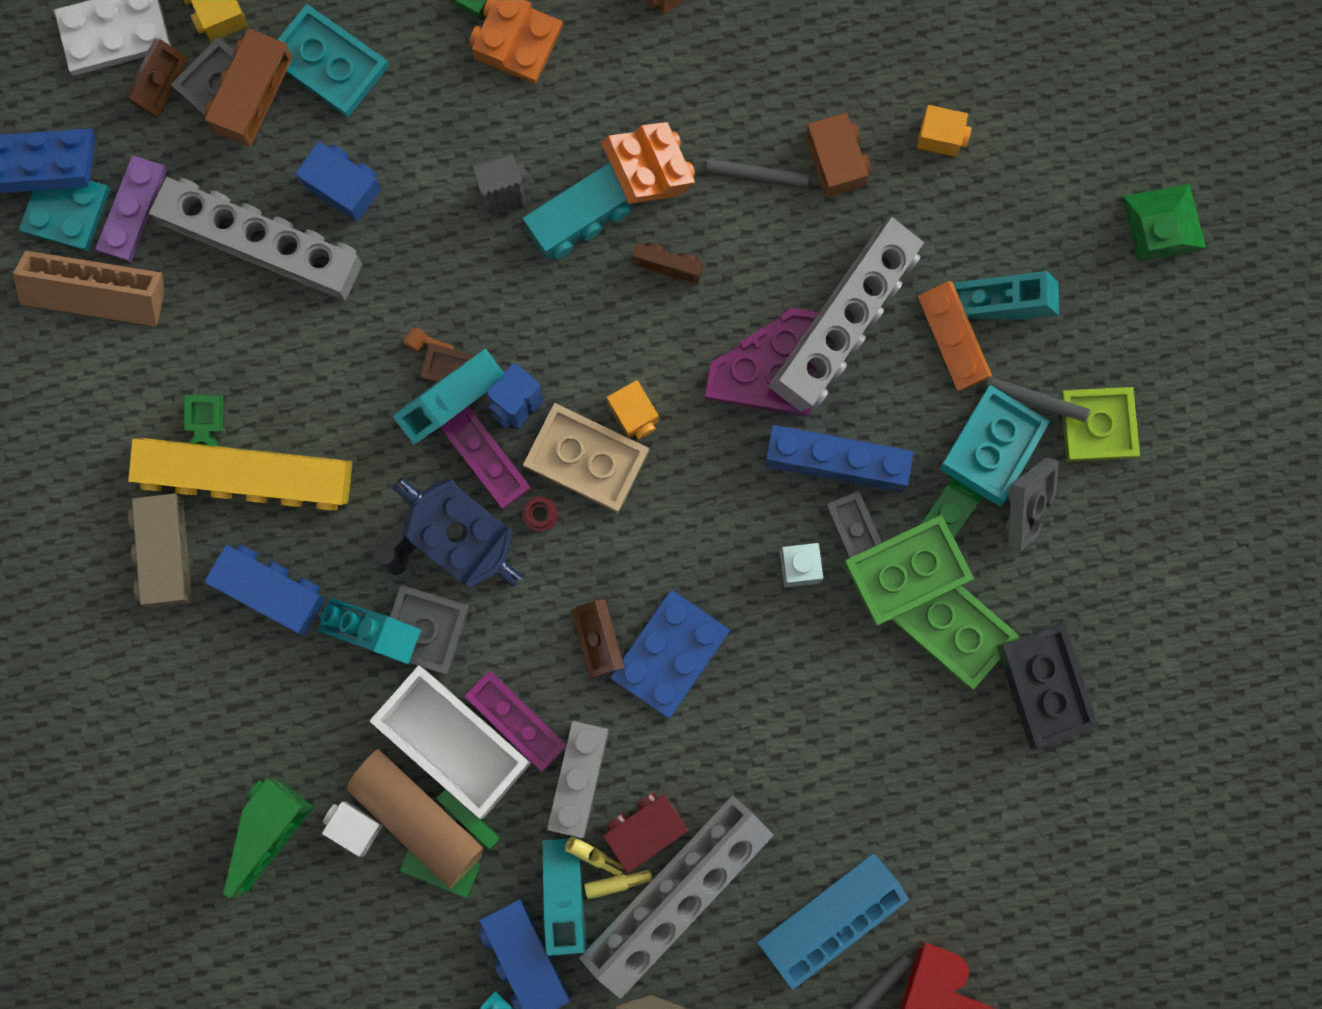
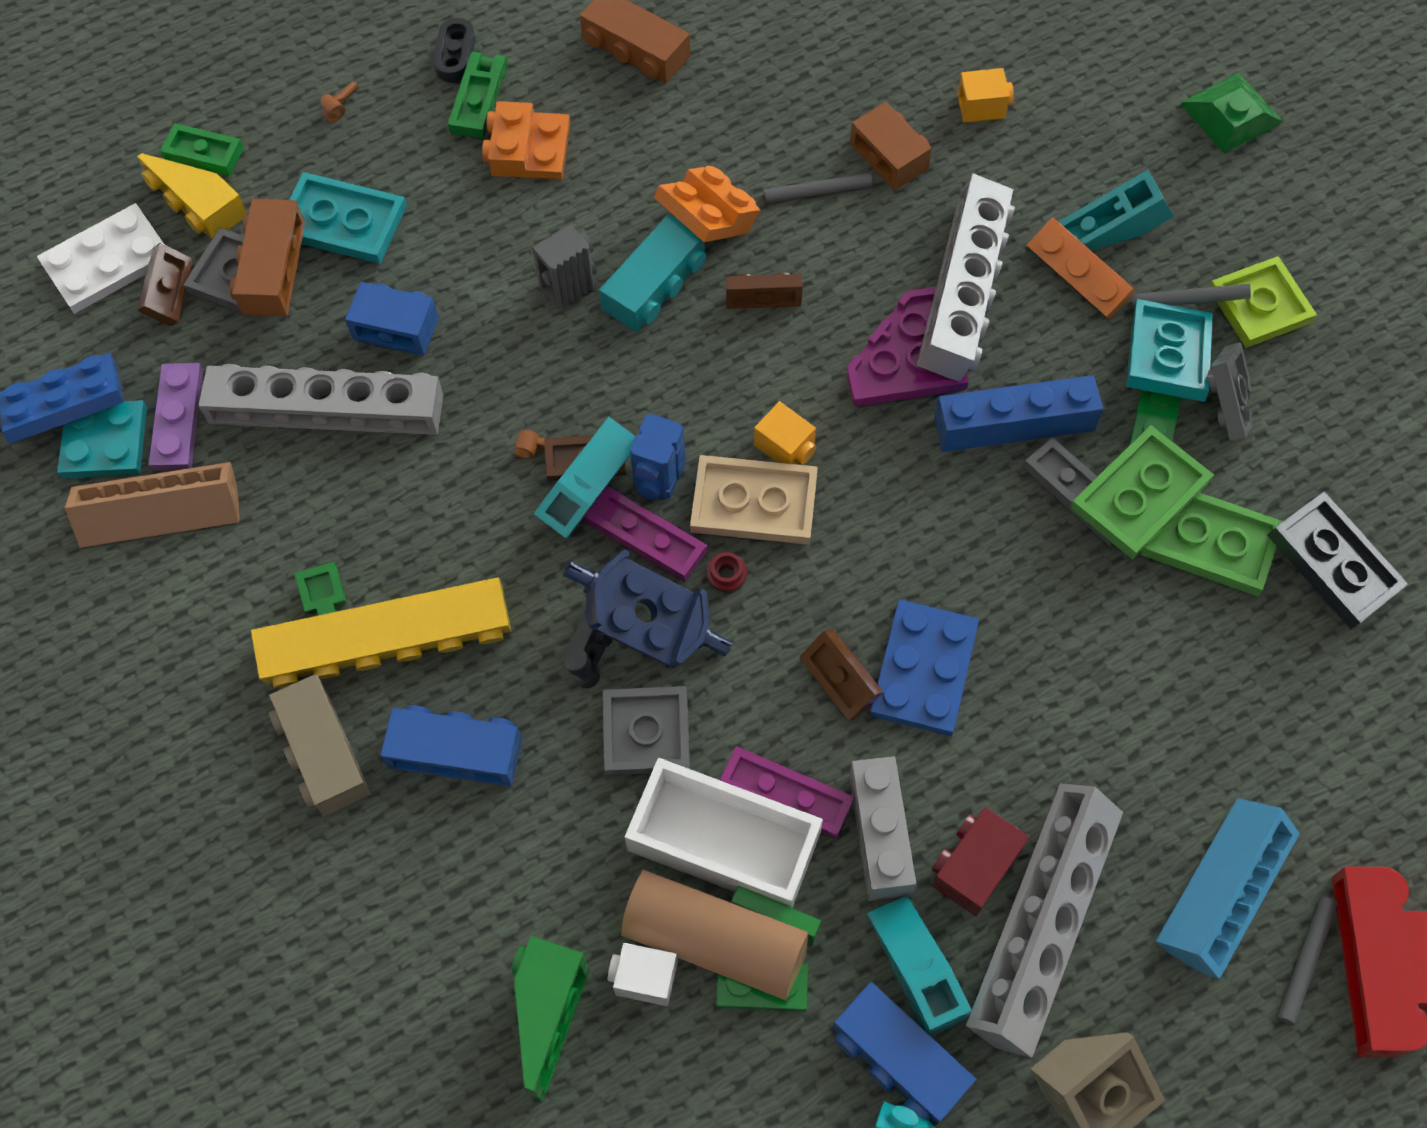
camera: 15 degrees left, 15 degrees down
(369, 630) = (587, 743): teal slope -> none
(582, 850) = (932, 907): light yellow pin -> none
(616, 884) = (971, 932): light yellow pin -> none
(801, 565) = (1026, 527): light aqua brick -> none

